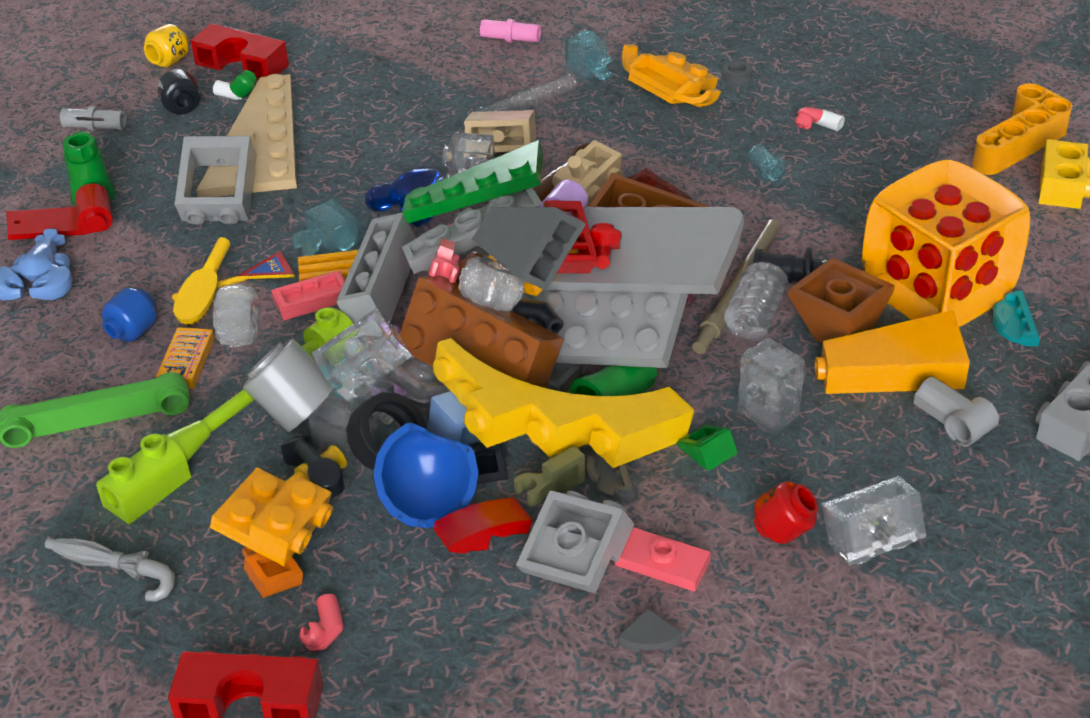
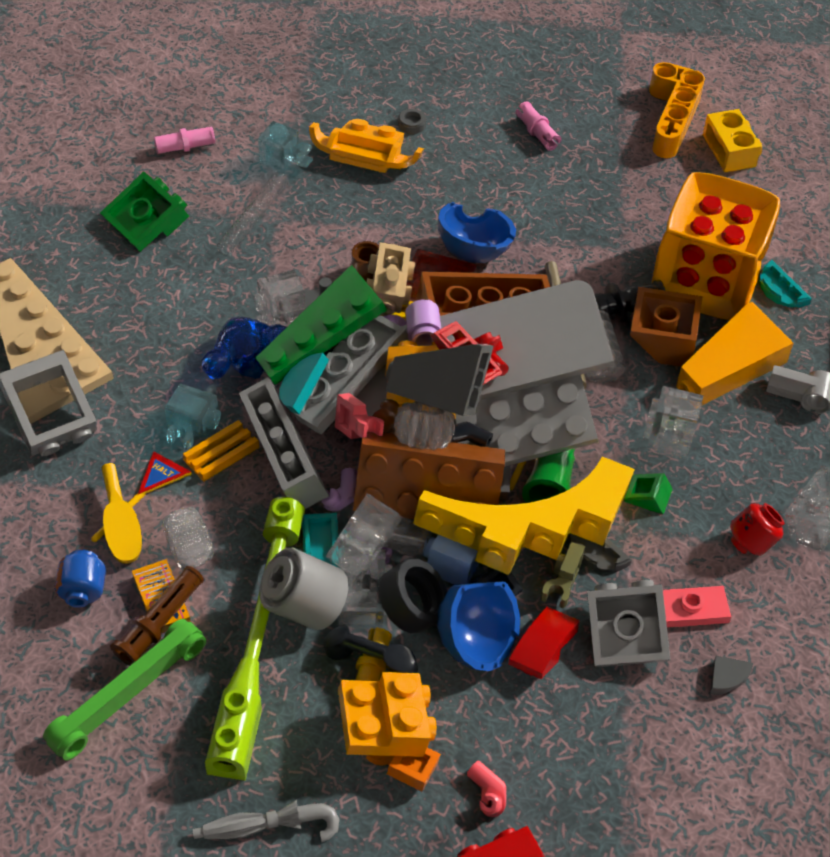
camera: 35 degrees left, 10 degrees up
(170, 361) = (147, 627): none -> reddish brown pin
(308, 295) = (226, 487): coral plate -> none
(426, 223) = (301, 381): none -> teal tile
(427, 68) = (145, 211): none -> green plate
(509, 128) = (268, 254): tan brick -> none
(705, 174) = (475, 238): none -> blue cylinder
(770, 166) = (512, 209): clear light blue pin -> none
(825, 118) = (513, 145): arm -> none
(859, 107) = (538, 126): none -> bright pink pin

